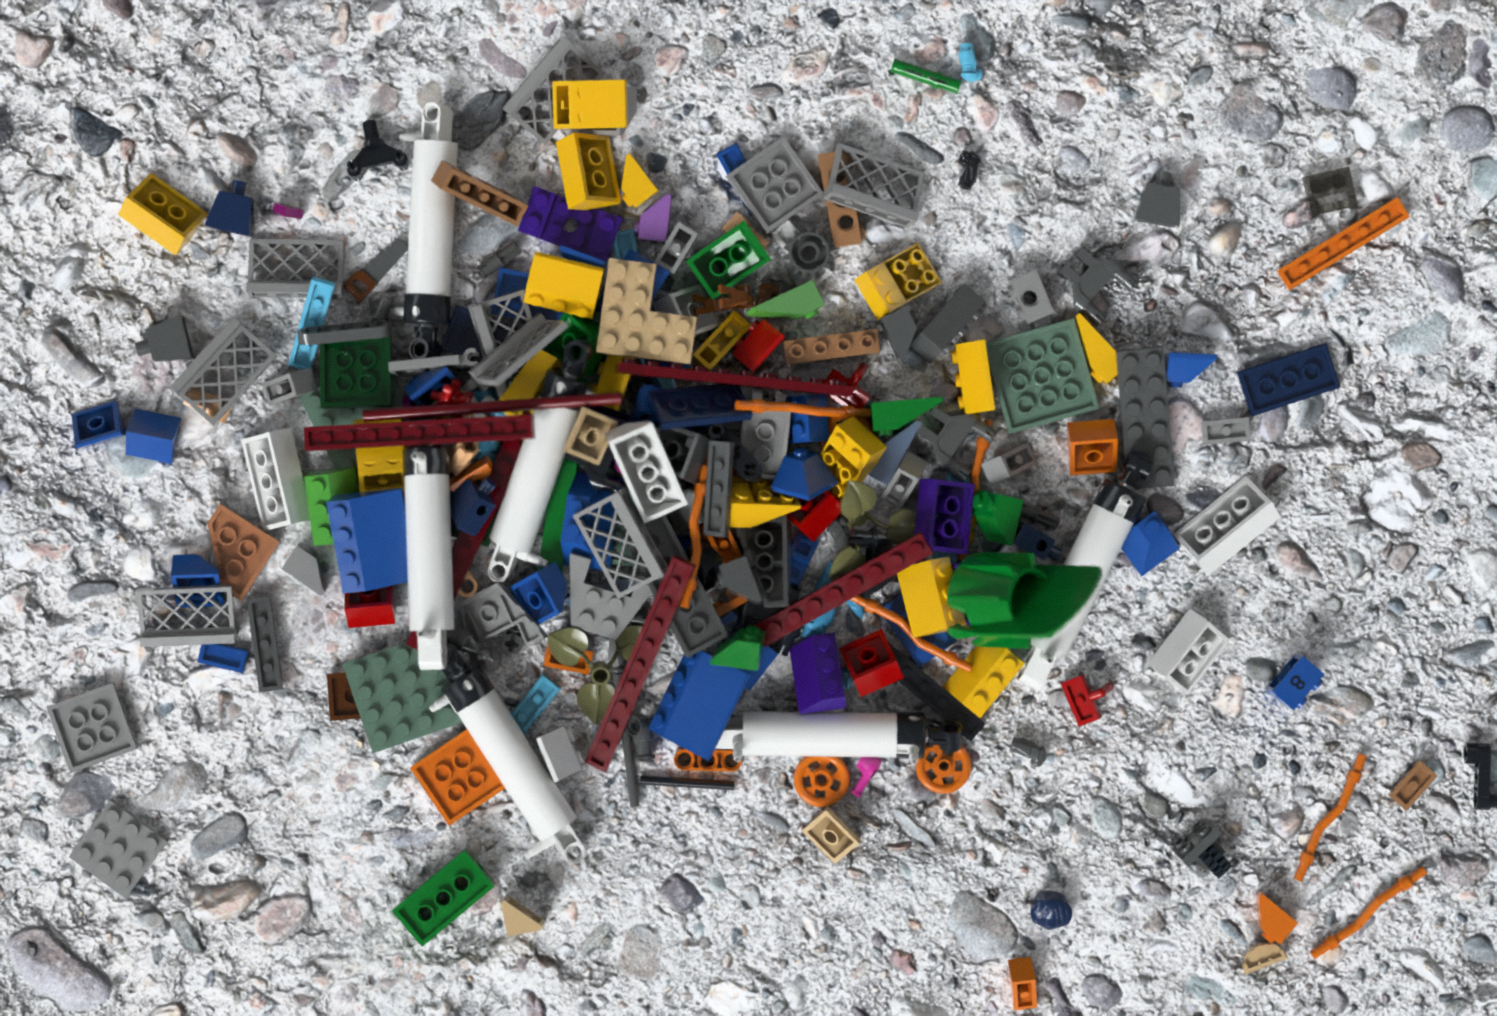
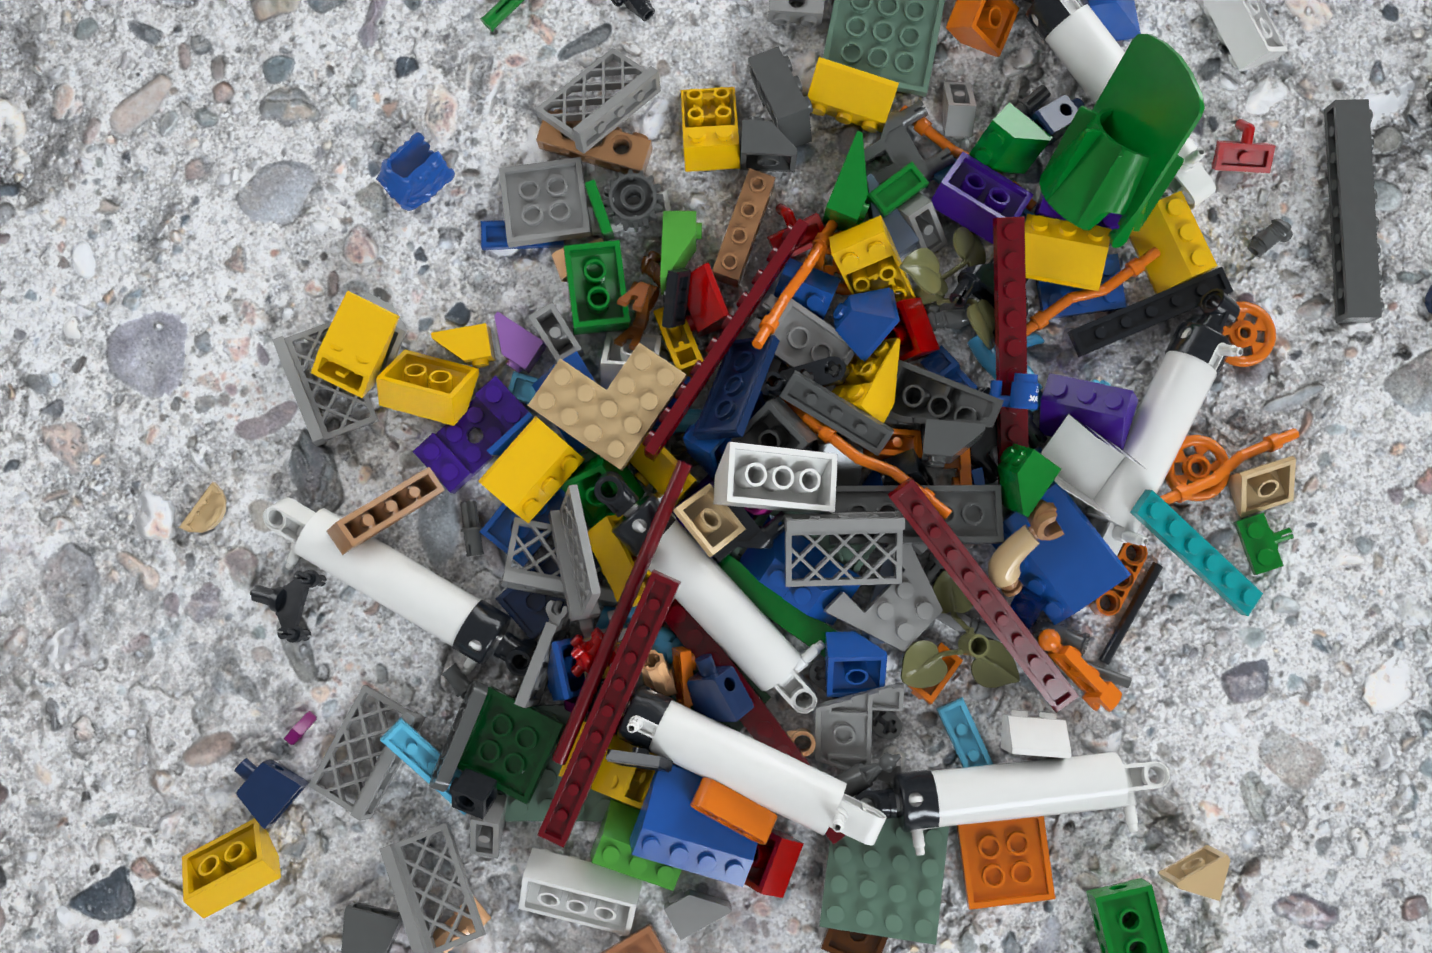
camera: 55 degrees left, 5 degrees down
(309, 365) = (473, 793): none -> black brick
(376, 270) = (414, 667): dark grey piece -> none
(393, 559) = (734, 810): none -> orange beam
(395, 472) = (640, 759): none -> plate
(410, 54) = (207, 511): none -> tan plate
(614, 785) = (1086, 677): none -> orange plate
(650, 701) = (1028, 606): none -> clear blue plate
(675, 666) = (1006, 560): none -> piece
(740, 87) = (414, 173): none -> blue piece
(747, 325) = (676, 297): none -> black plate
(753, 805) = (1196, 552): none -> teal plate
(774, 688) = (1084, 460): none -> white sticker
(788, 230) = (599, 210): none -> green tile
(789, 854) = (1261, 543): none -> green plate
(794, 775) = (1270, 443): none -> orange bar
(804, 617) = (1023, 391): none -> blue piece
(868, 767) = (1212, 413): dark pink bar -> none
(871, 662) = (1101, 349): red slope -> none
(917, 449) = (897, 189): none -> green tile
(1079, 803) = (1353, 211): none -> dark grey brick

